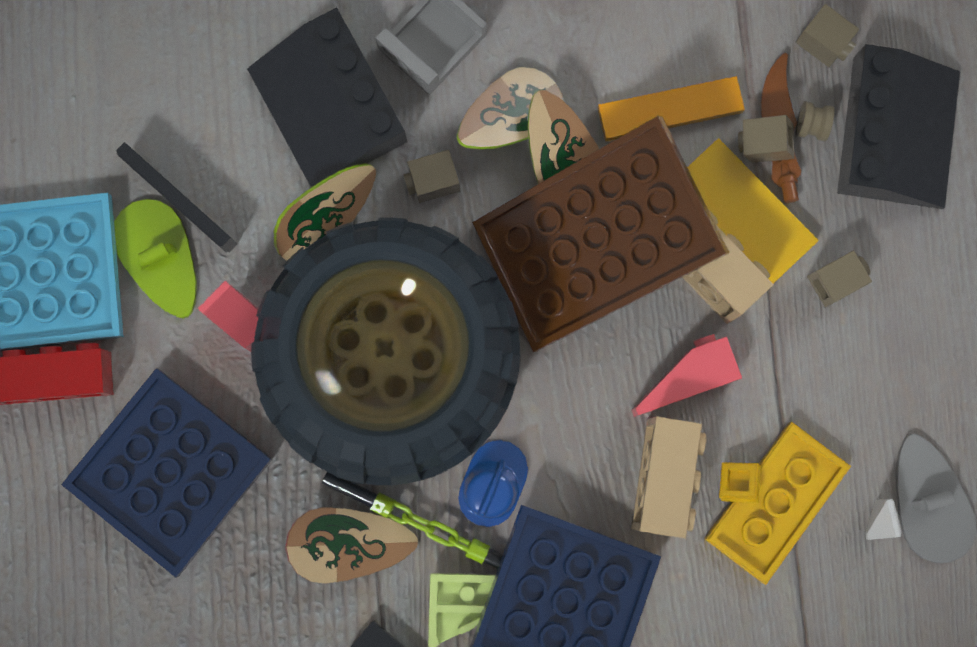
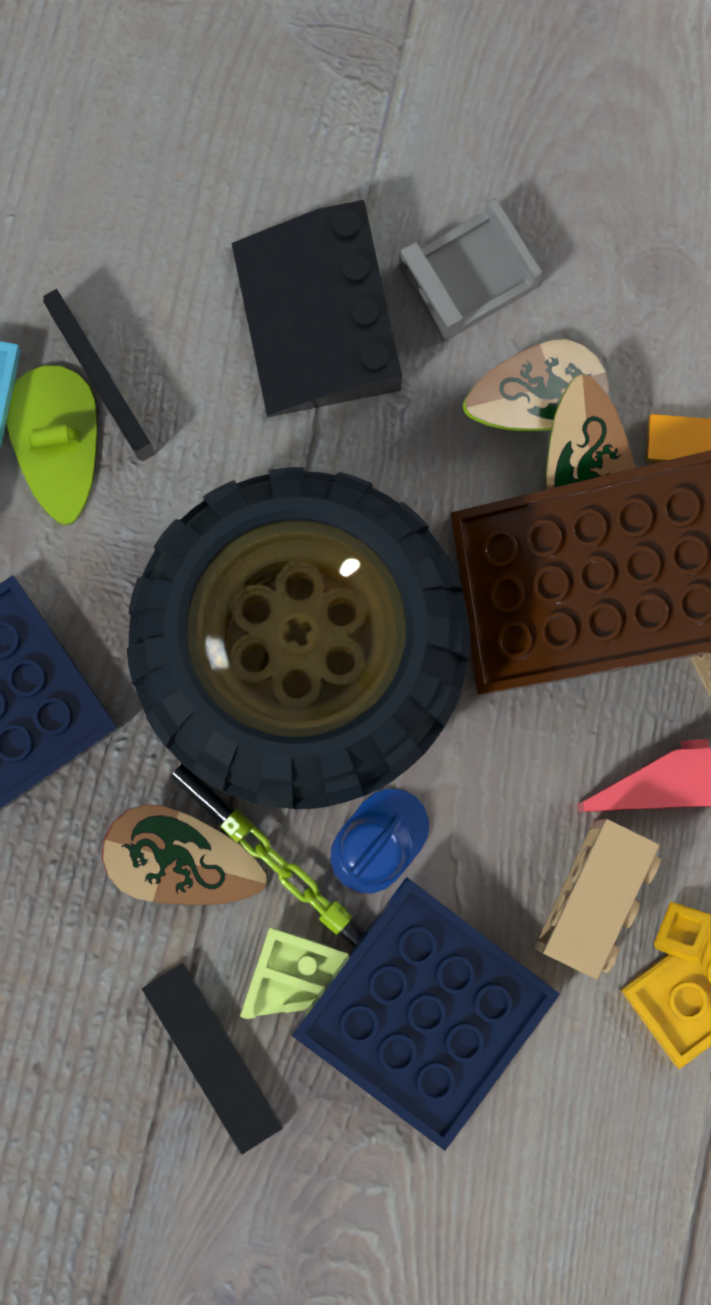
camera: 20 degrees right, 0 degrees up
(232, 313) = (124, 536): coral slope -> none
(322, 208) = (273, 440): shield -> none
(432, 176) = (418, 442): dark tan brick -> none

